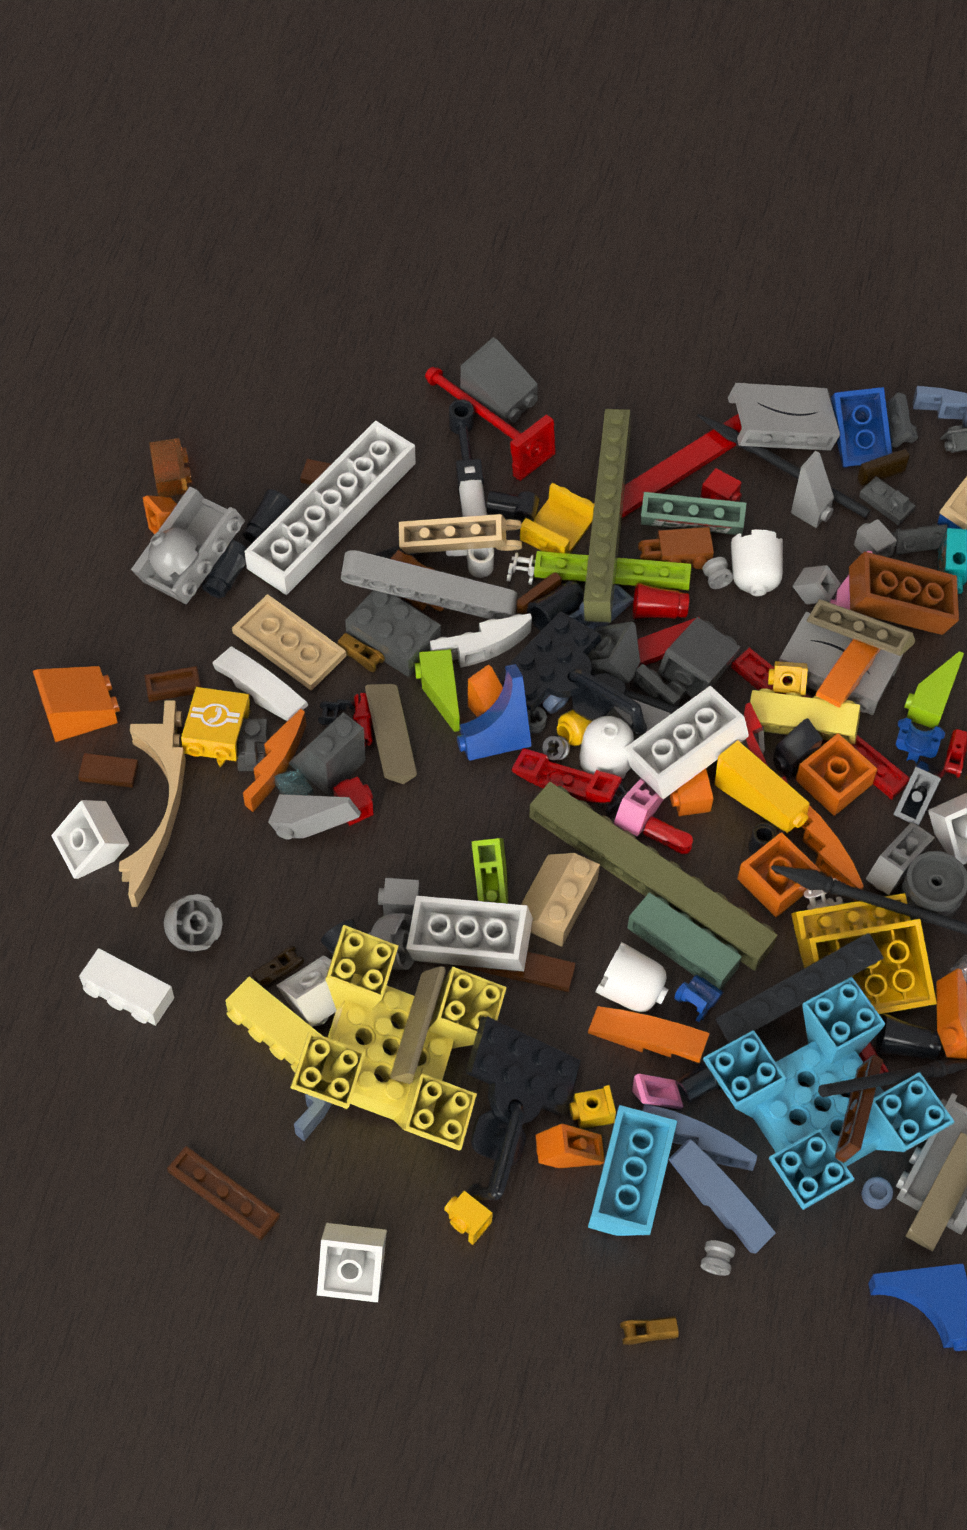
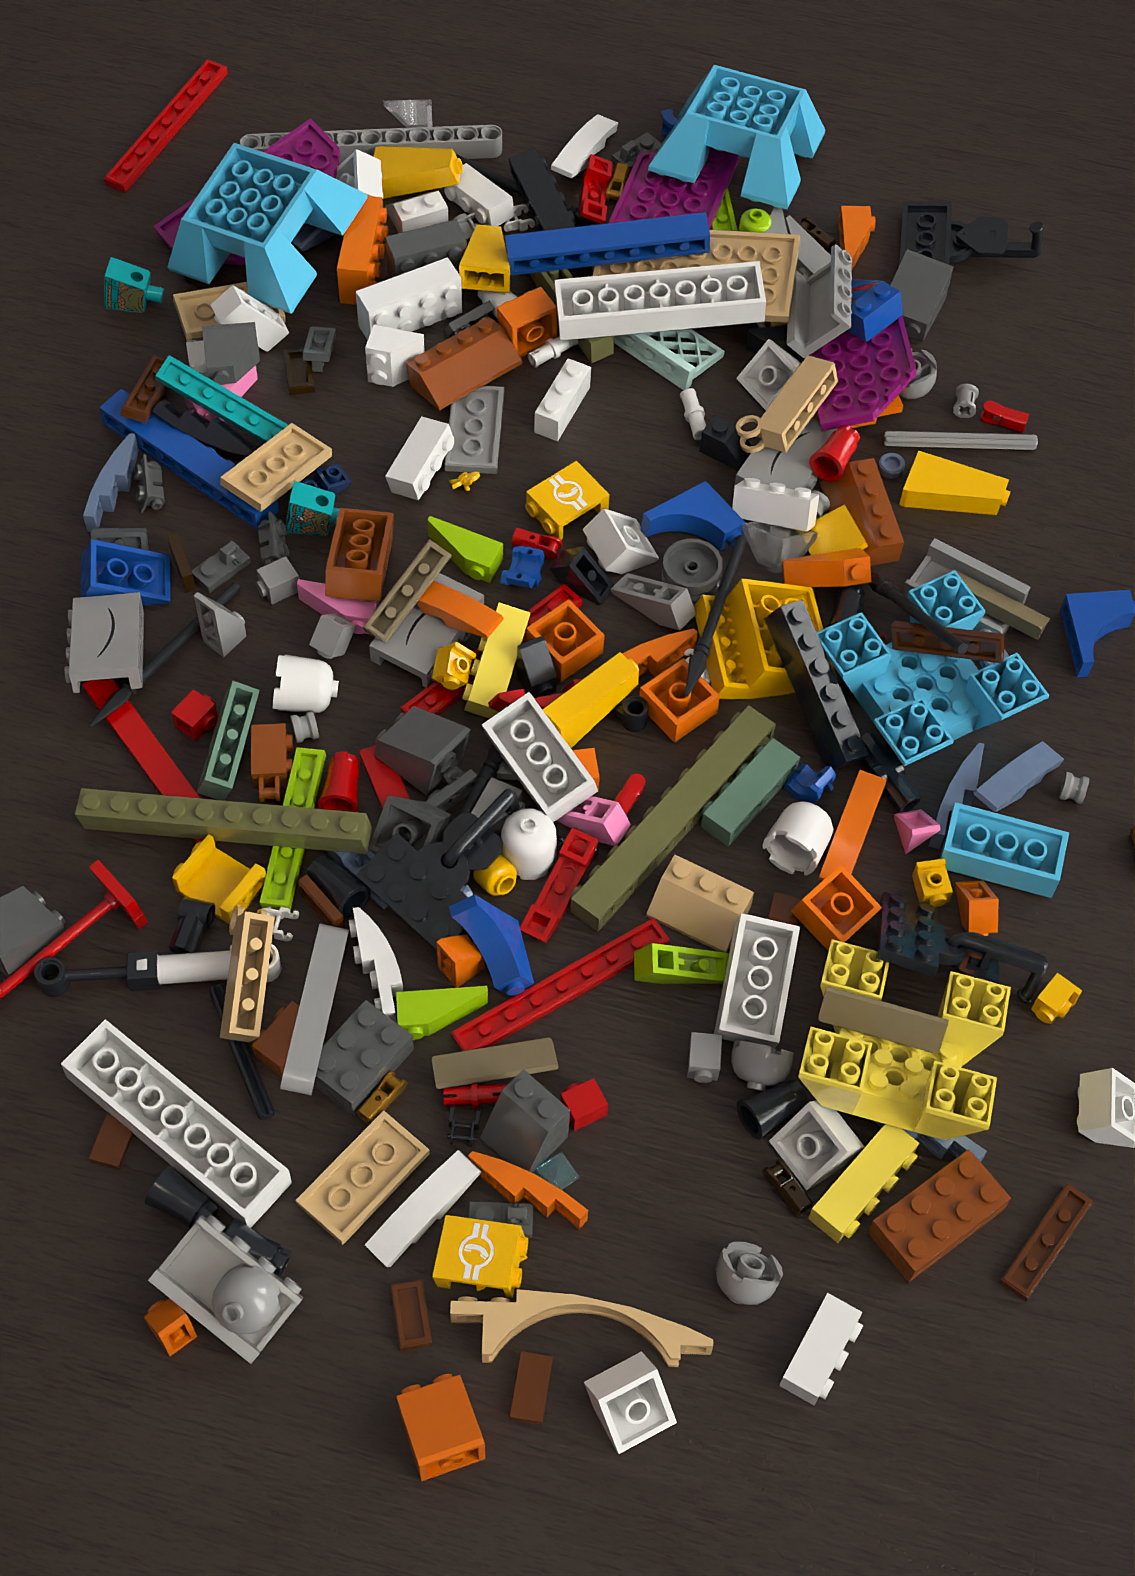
camera: 90 degrees left, 0 degrees up
(168, 467) = (84, 1326): clear orange brick -> none
(244, 1090) = (938, 1215): none -> dark orange brick
(307, 815) = (609, 1149): light grey slope -> none
(471, 788) = (557, 988): none -> red tile
(552, 1008) = (836, 908): none -> orange brick
(563, 749) = (529, 899): flat silver bush -> none

